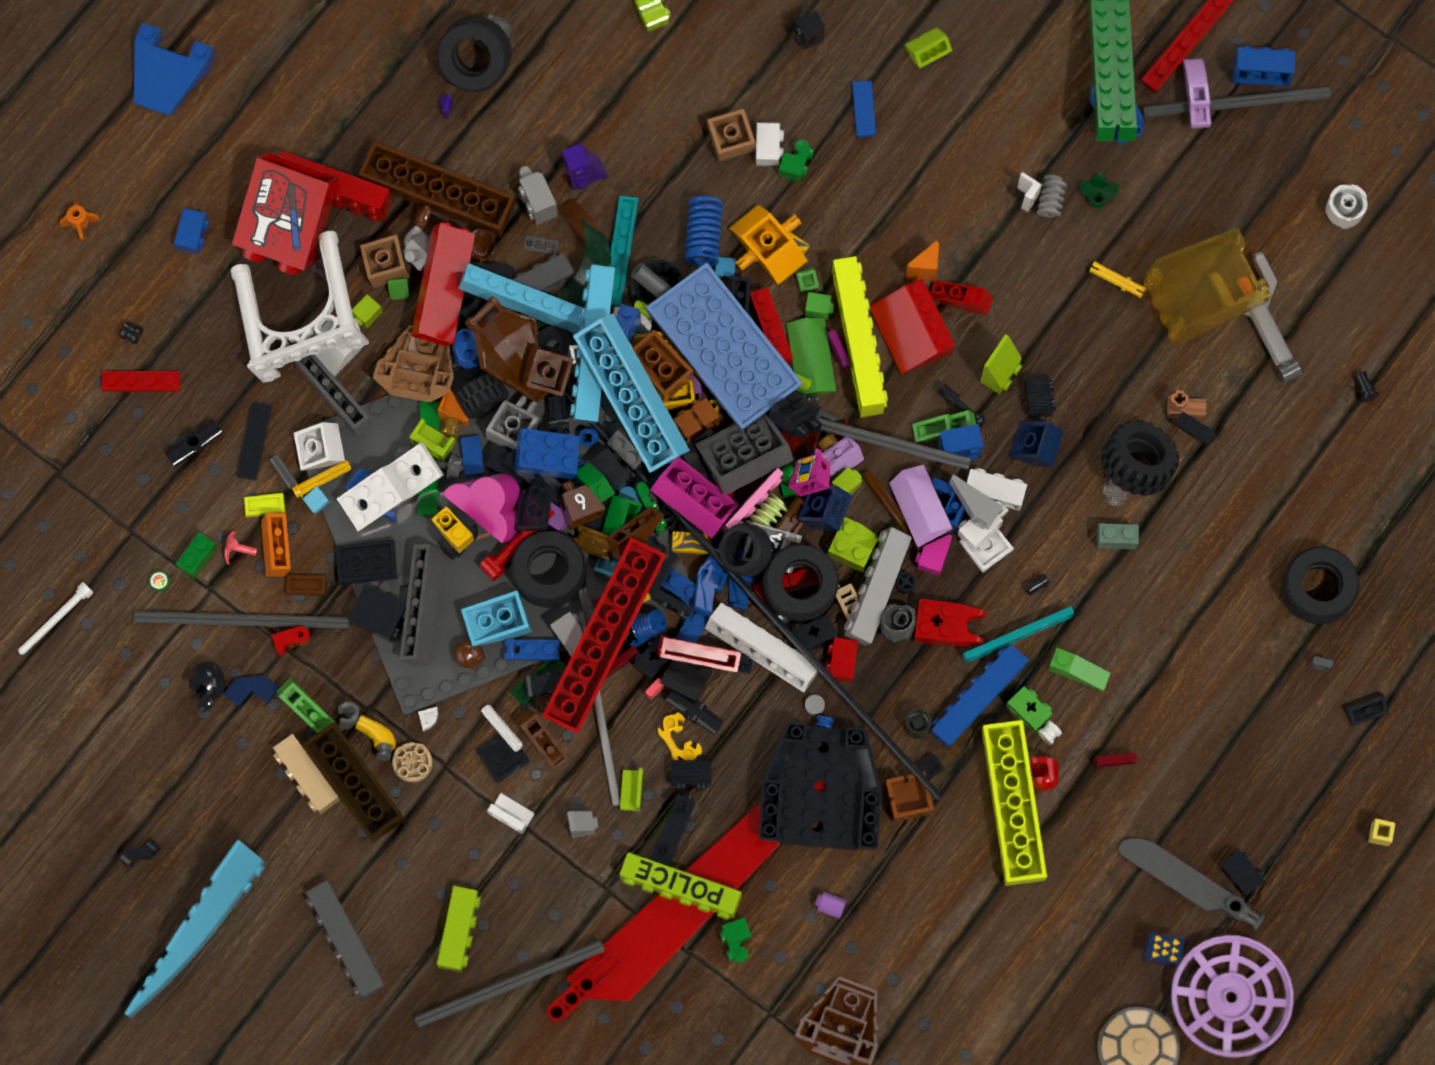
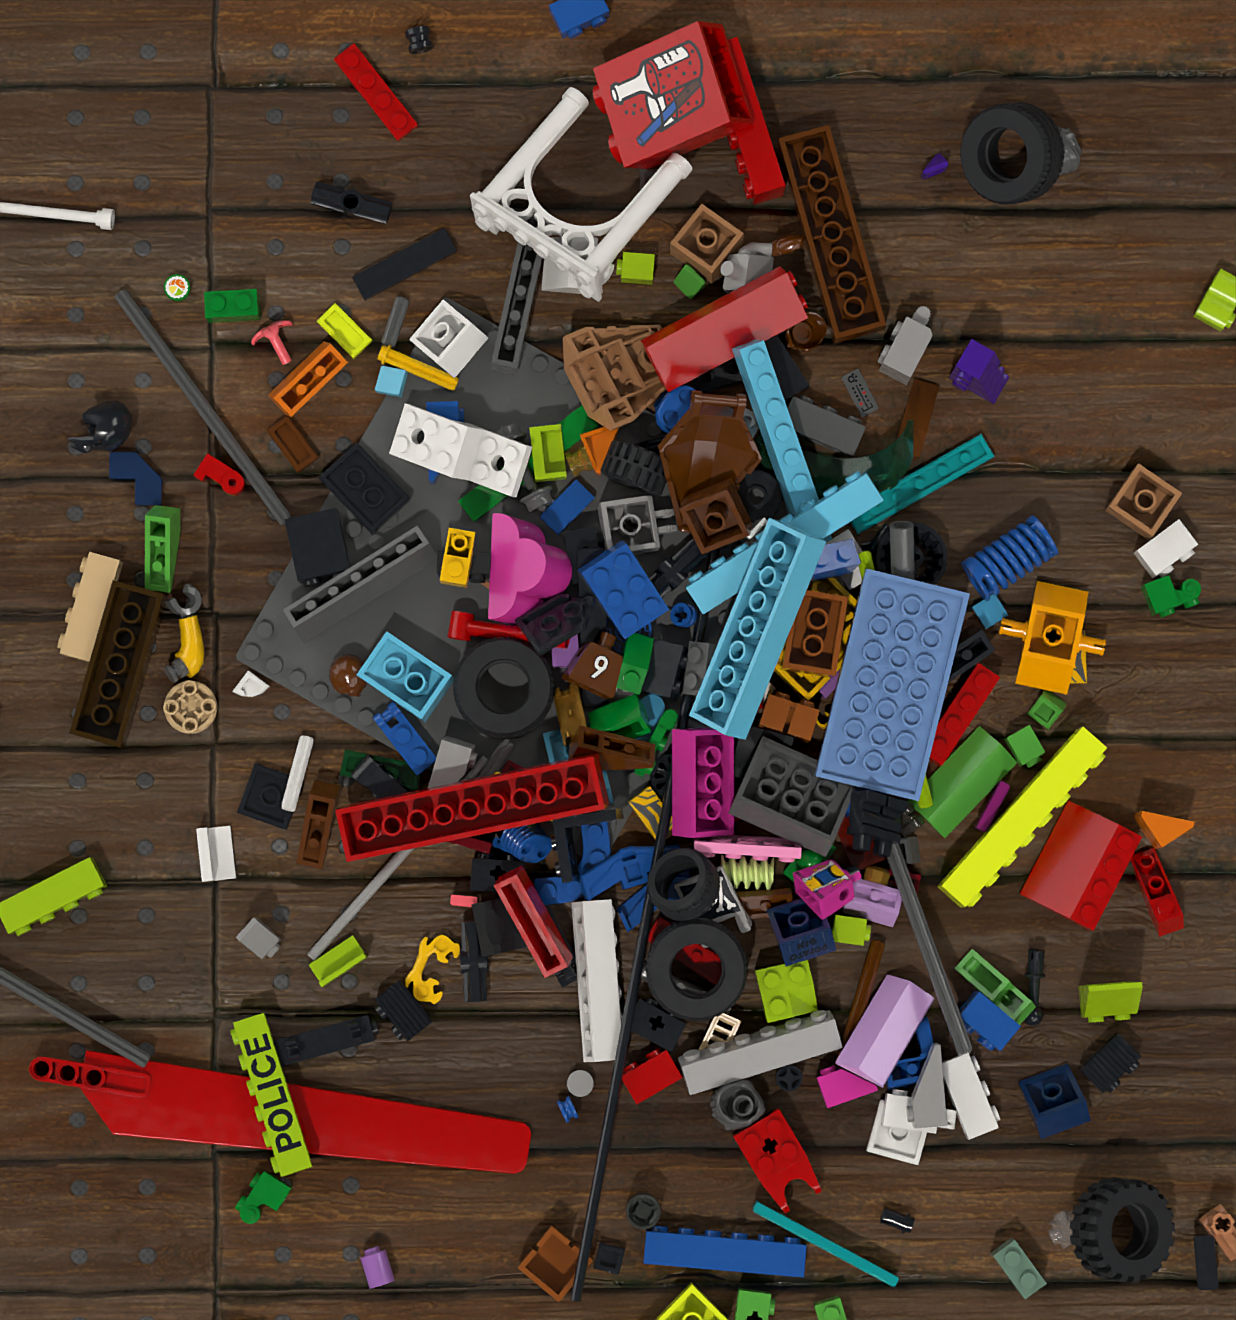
camera: 50 degrees right, 10 degrees up
(851, 797) = (497, 1202): black wedge -> none

